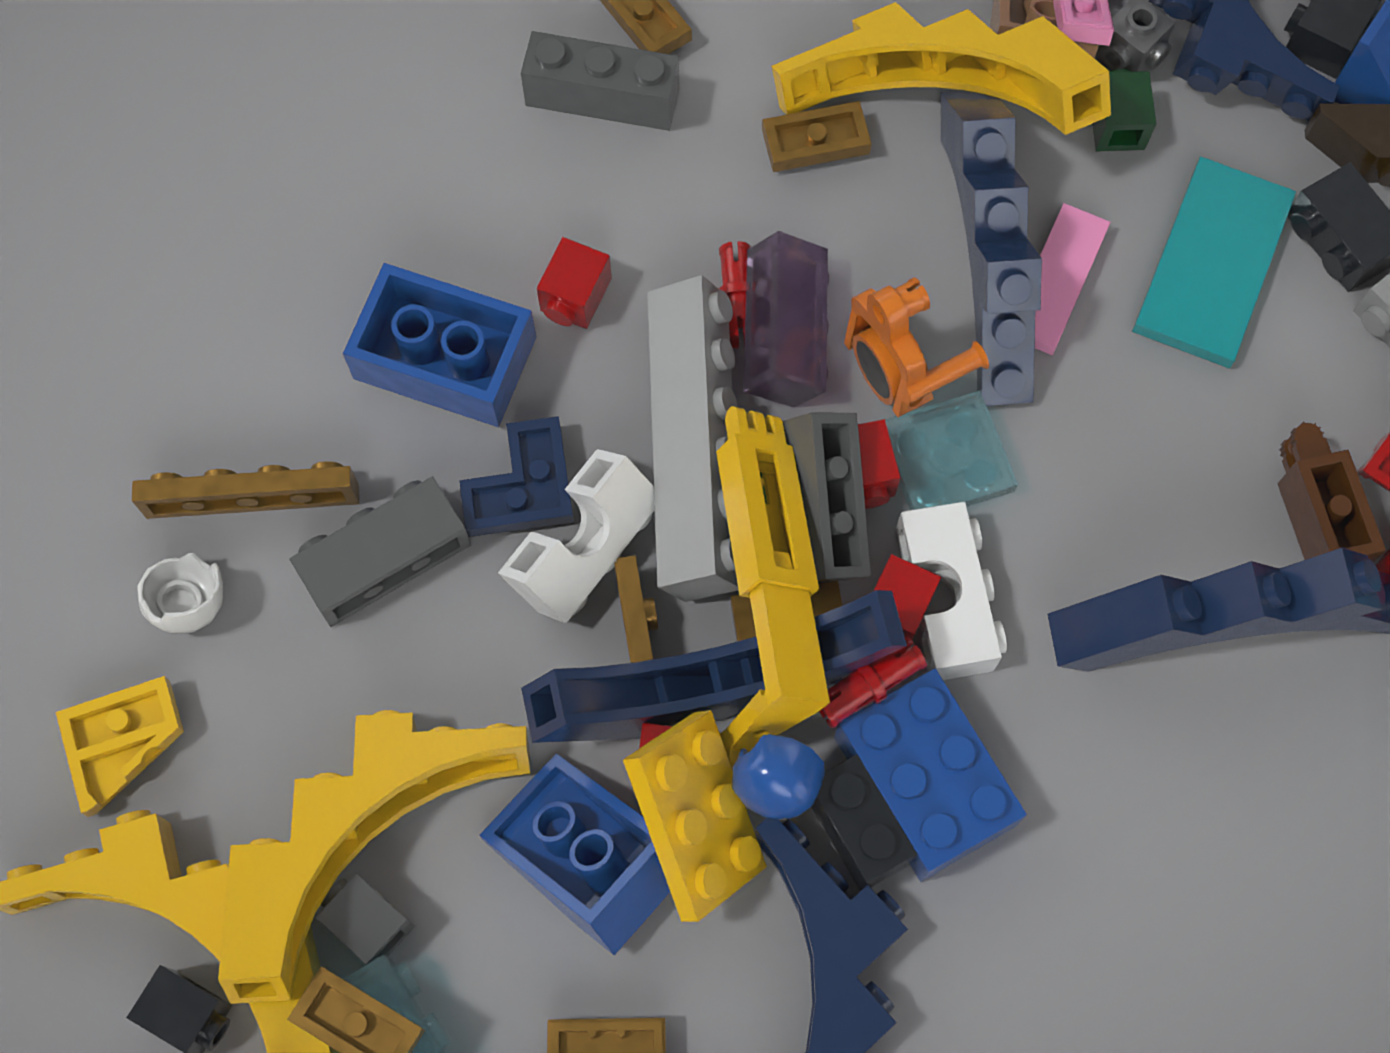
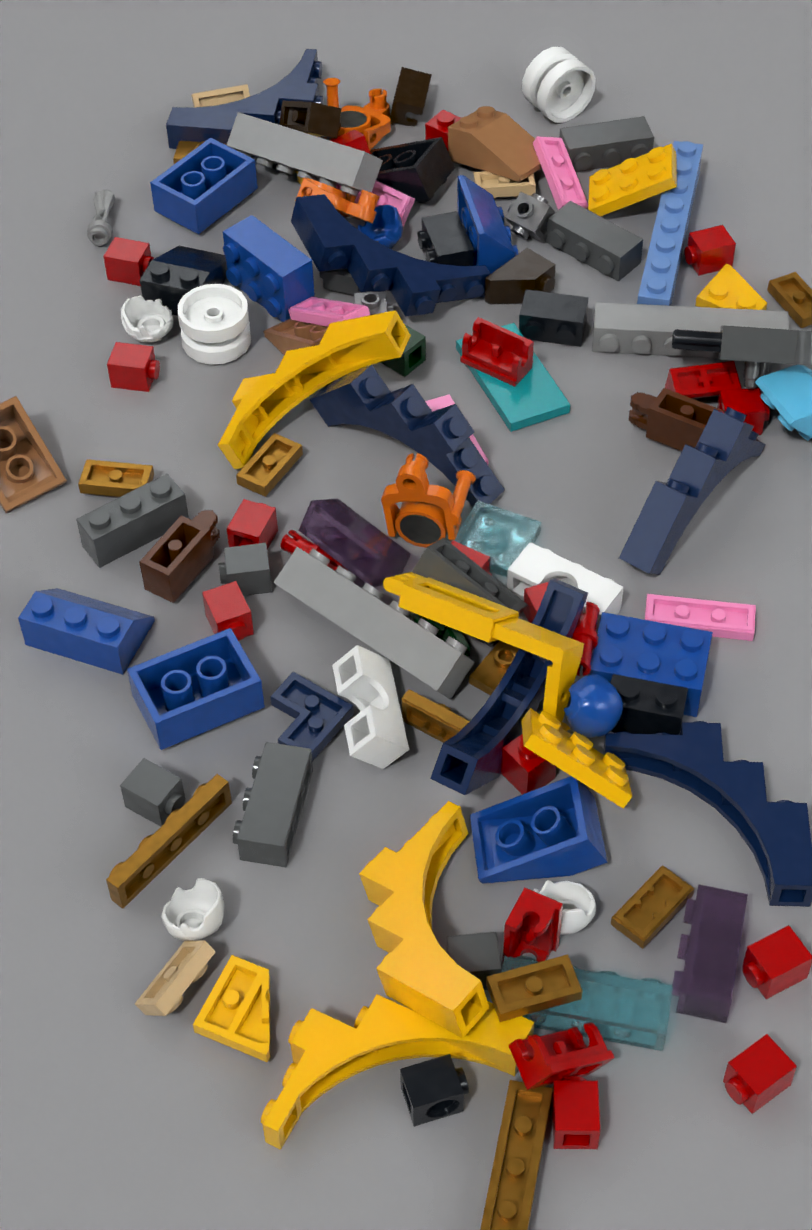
camera: 45 degrees left, 20 degrees down
(95, 646) = (180, 971): none -> tan plate
(287, 423) = (152, 792): none -> dark grey brick
(431, 165) = (84, 628): none -> blue slope
(443, 953) = (533, 926): none -> red hinge
(515, 956) = (577, 902): none -> white hair
(599, 168) = (180, 555): none -> reddish brown hinge
(648, 247) = (248, 567): none -> dark grey brick
(709, 202) = (252, 524): none -> brick
(1064, 770) = (721, 618): none -> bright pink tile
(1217, 219) = (497, 352): none -> red hinge

